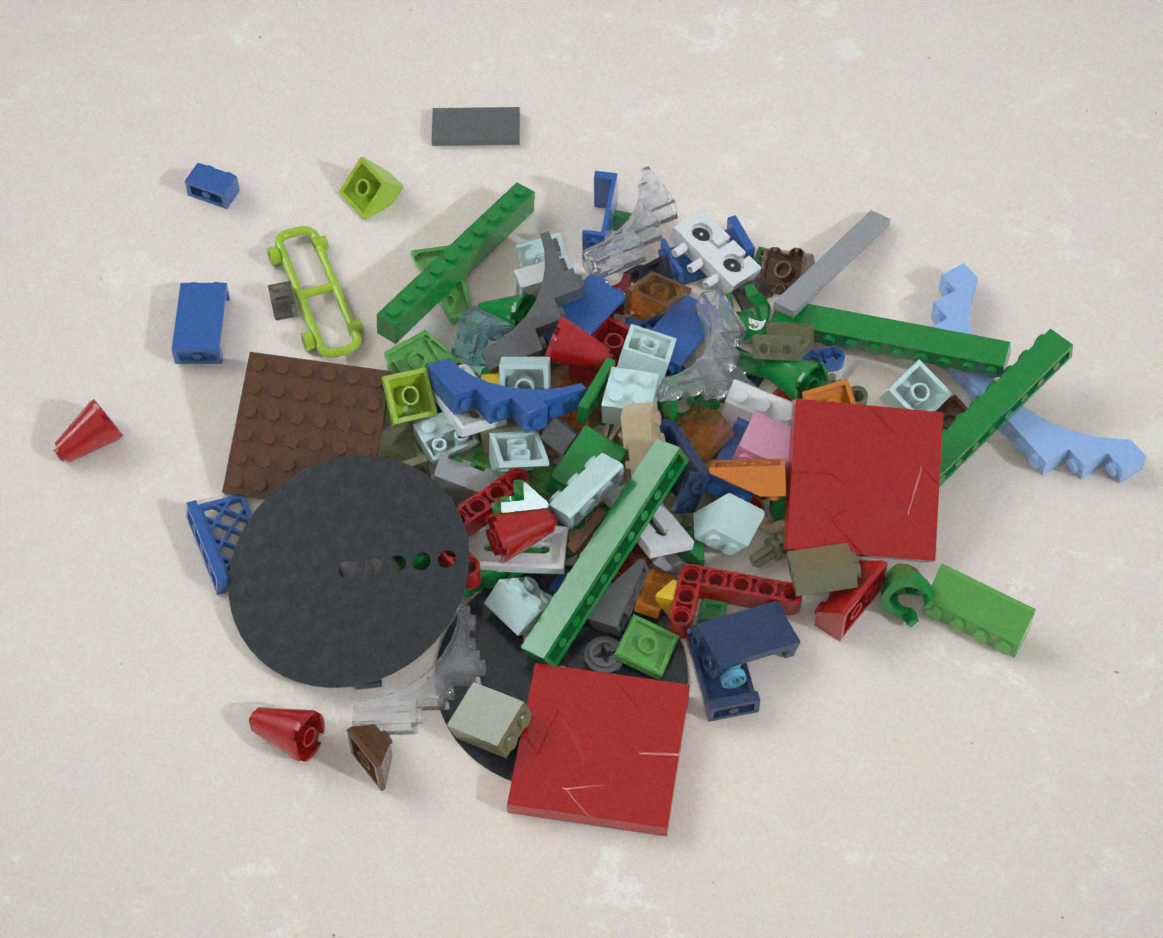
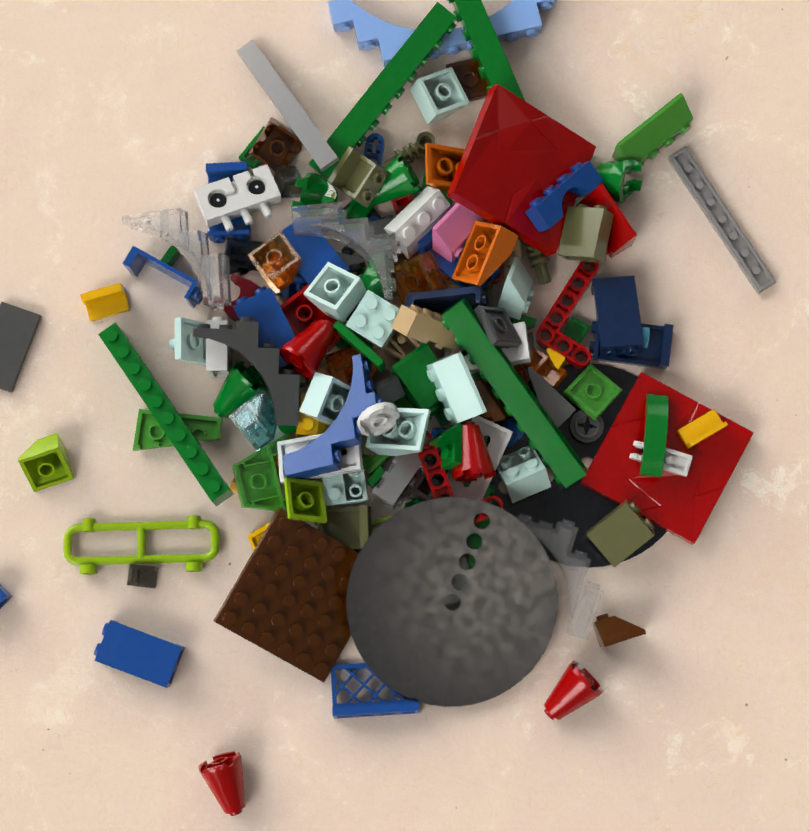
camera: 65 degrees left, 25 degrees up
(519, 419) = (378, 418): none -> white tile
(556, 186) = (105, 302): none -> yellow panel
(594, 735) = (674, 461): none -> white hinge
(616, 708) = (654, 435): none -> green slope
(646, 765) = (701, 428): none -> yellow panel
(672, 505) = (498, 326): none -> dark grey tile
(880, 543) = (548, 209): none -> blue arch
(913, 725) = (721, 220): none -> light grey tile

